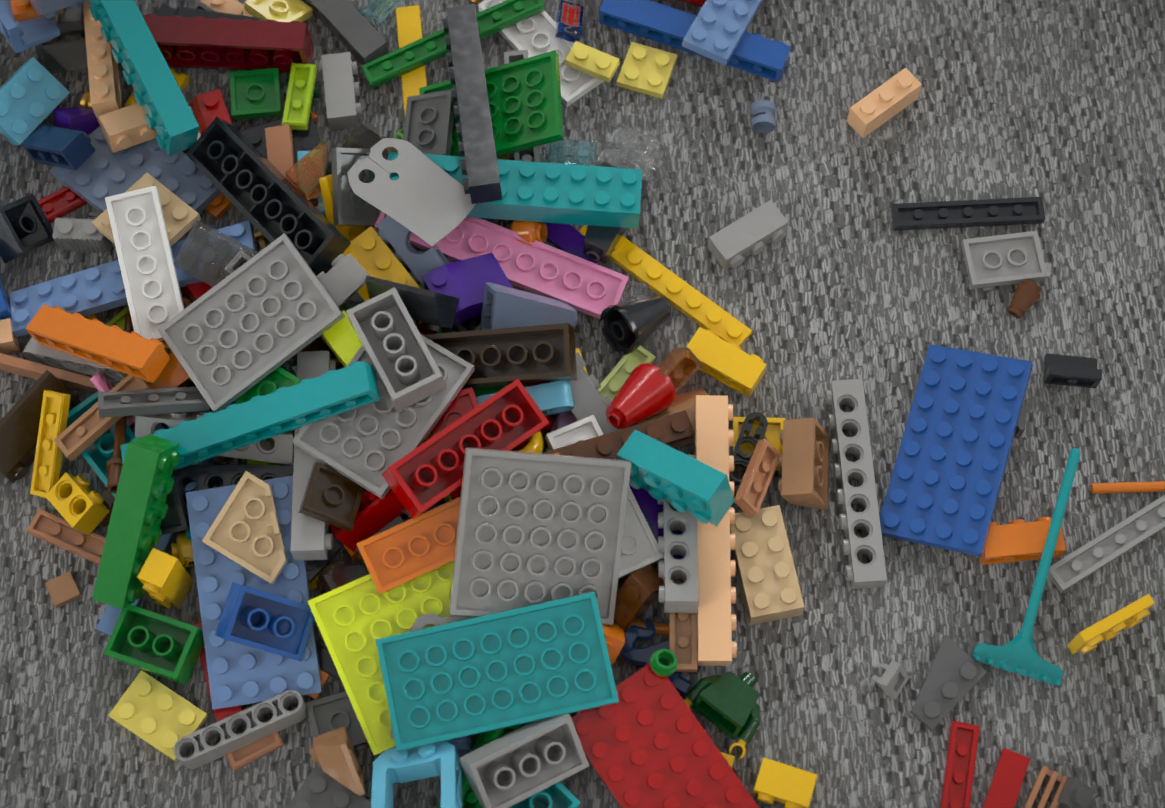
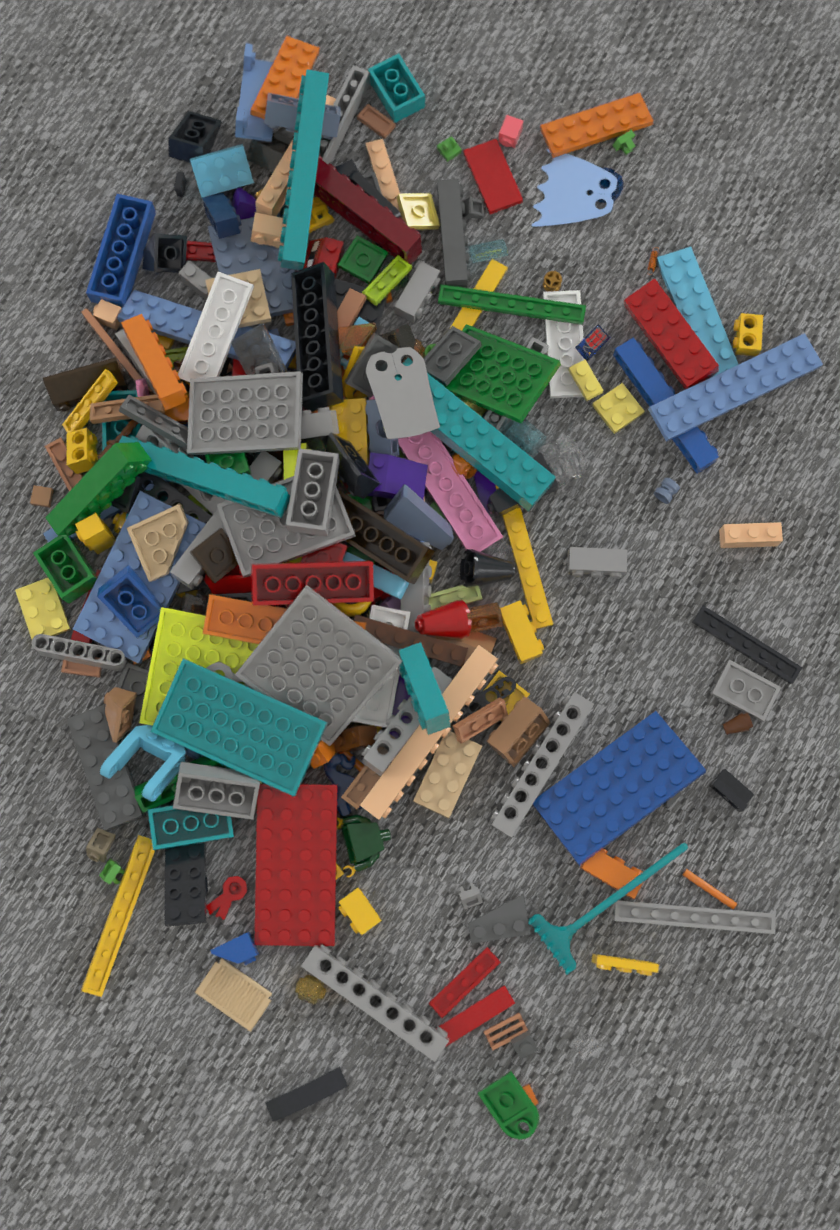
camera: 35 degrees right, 10 degrees up
(472, 106) = (482, 361): black brick -> none
(668, 658) = (344, 791): green plate -> none

